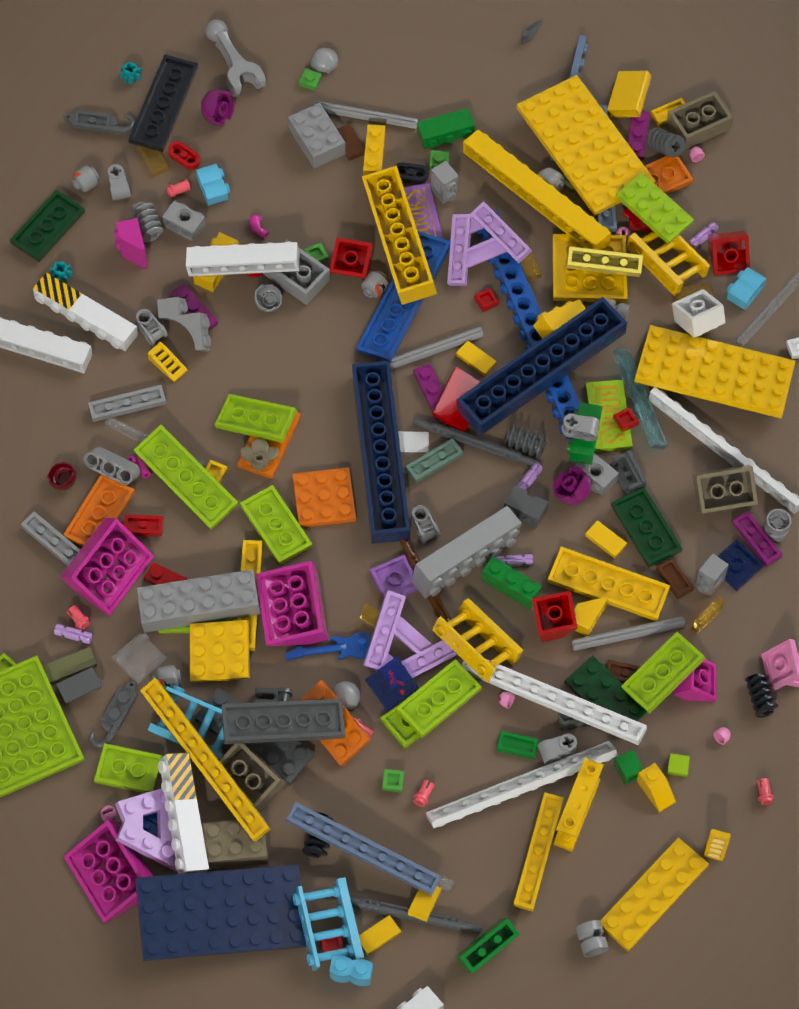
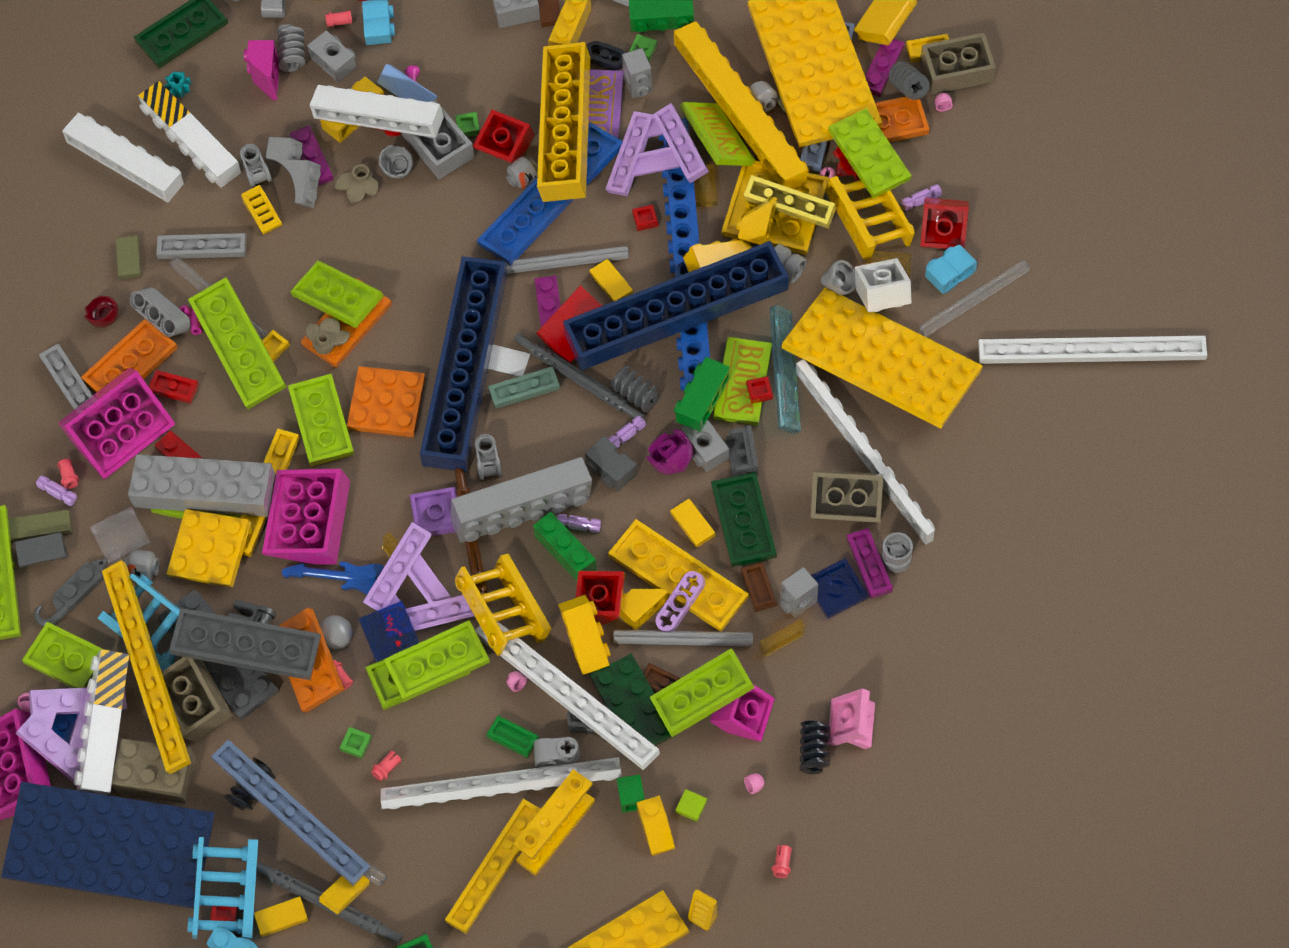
camera: 20 degrees right, 0 degrees up
(67, 426) = (128, 257): none -> olive tile
(240, 325) = (357, 186): none -> dark tan plate
(253, 234) = (403, 86): none -> light blue tile
(525, 218) = (717, 134): none -> lime tile
(553, 648) = (585, 634): none -> yellow brick
(582, 427) = (695, 385): light grey piece -> none
(583, 284) = (757, 222): none -> yellow slope
(619, 588) = (690, 600): none -> lavender beam
(660, 315) = (839, 277): none -> light grey hat

